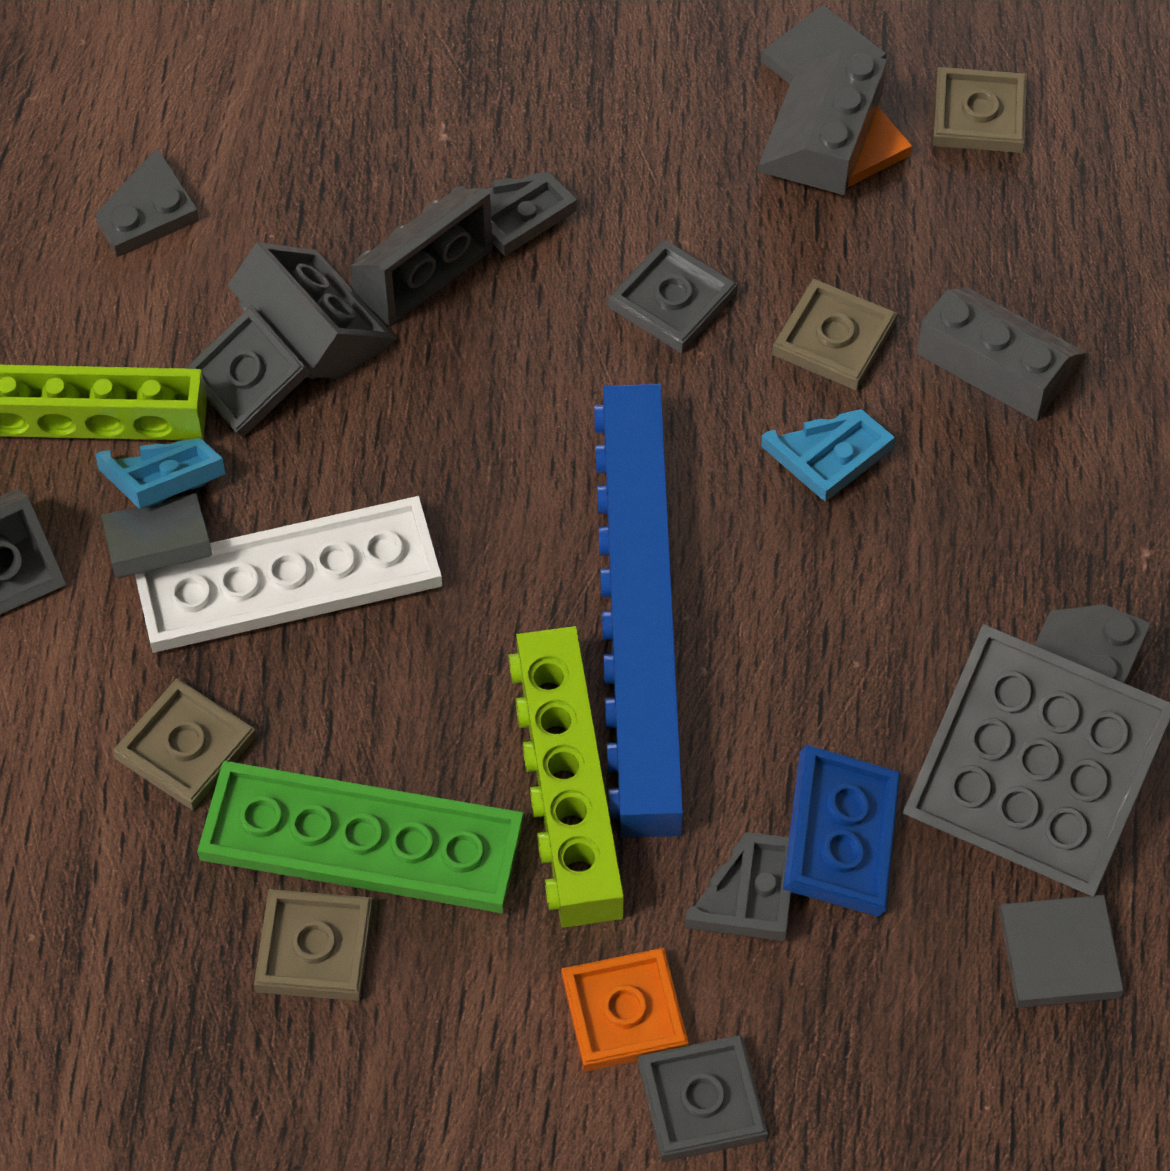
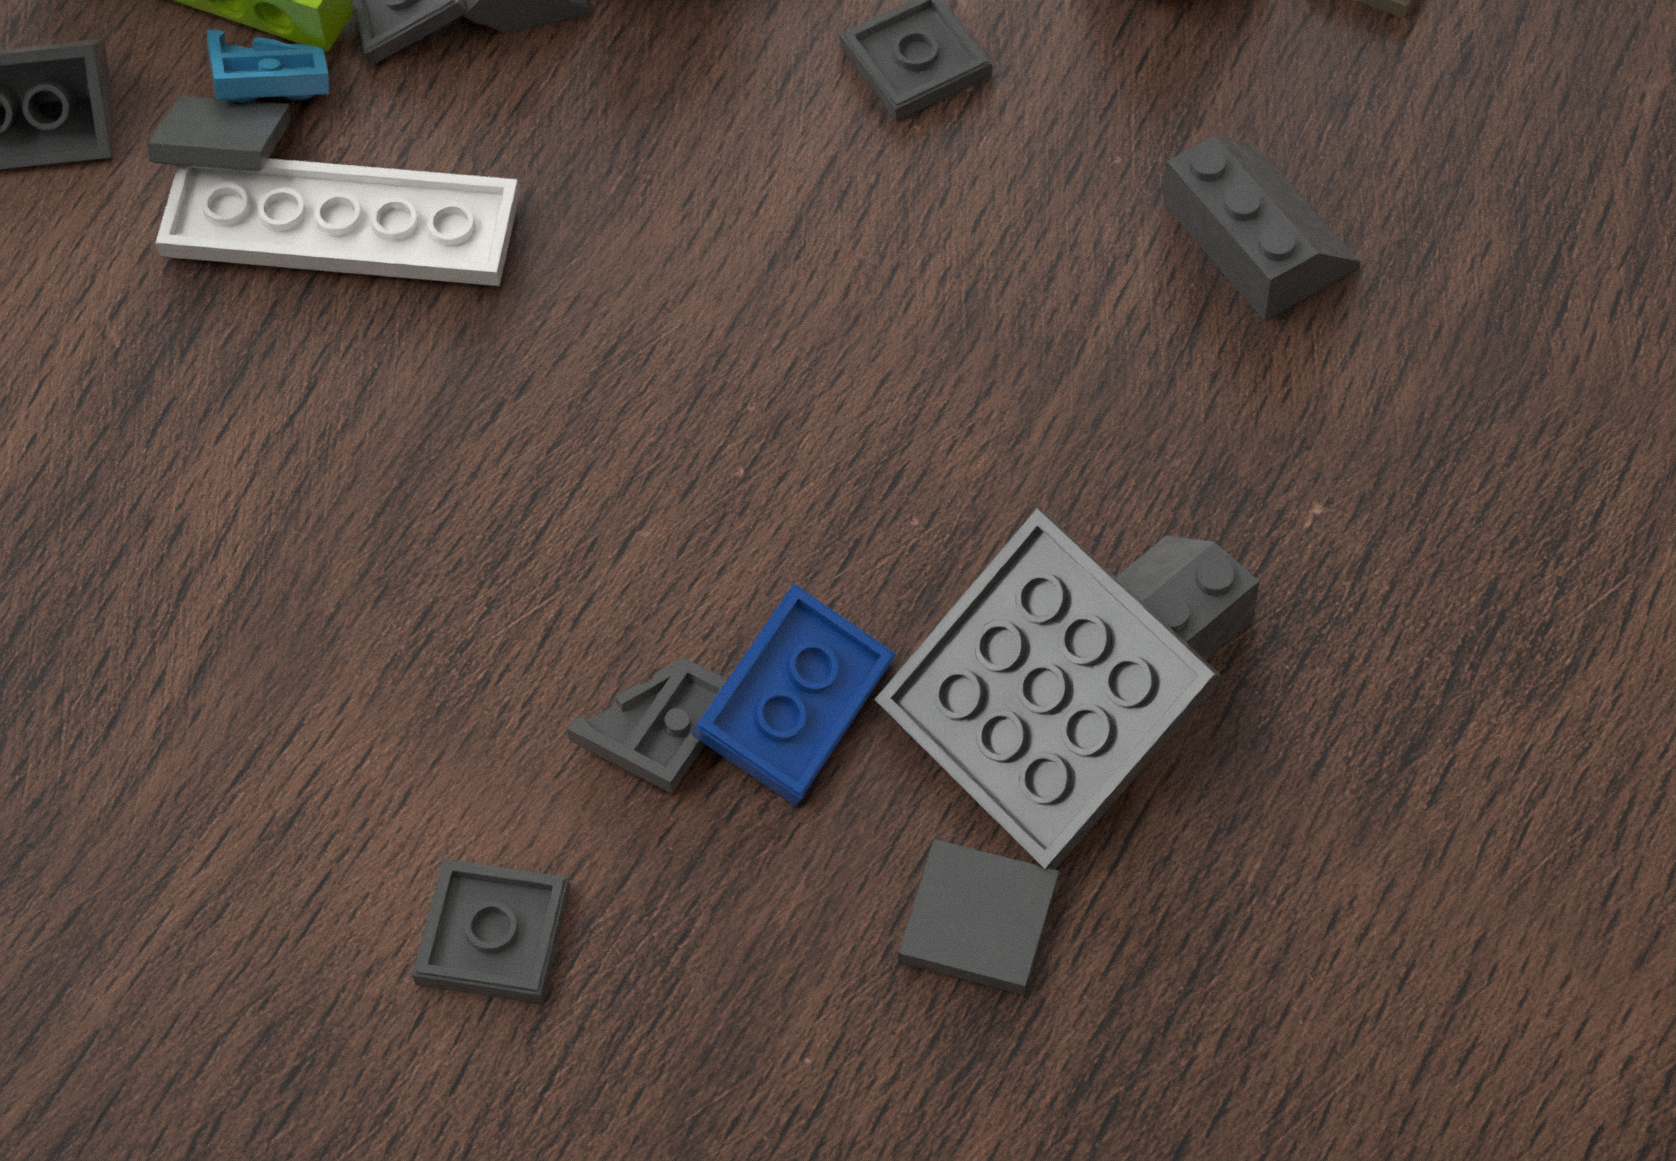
camera: 25 degrees right, 0 degrees up
(184, 743) = (144, 362): dark tan tile -> none
(313, 945) = (166, 618): dark tan tile -> none
(361, 836) = (273, 521): bright green plate -> none
(596, 892) = (492, 664): lime brick -> none
(623, 1008) = (457, 803): orange tile -> none
(640, 613) = (693, 383): blue brick -> none
(830, 451) = (1003, 276): dark azure wing -> none
(834, 334) = (1077, 152): dark tan tile -> none

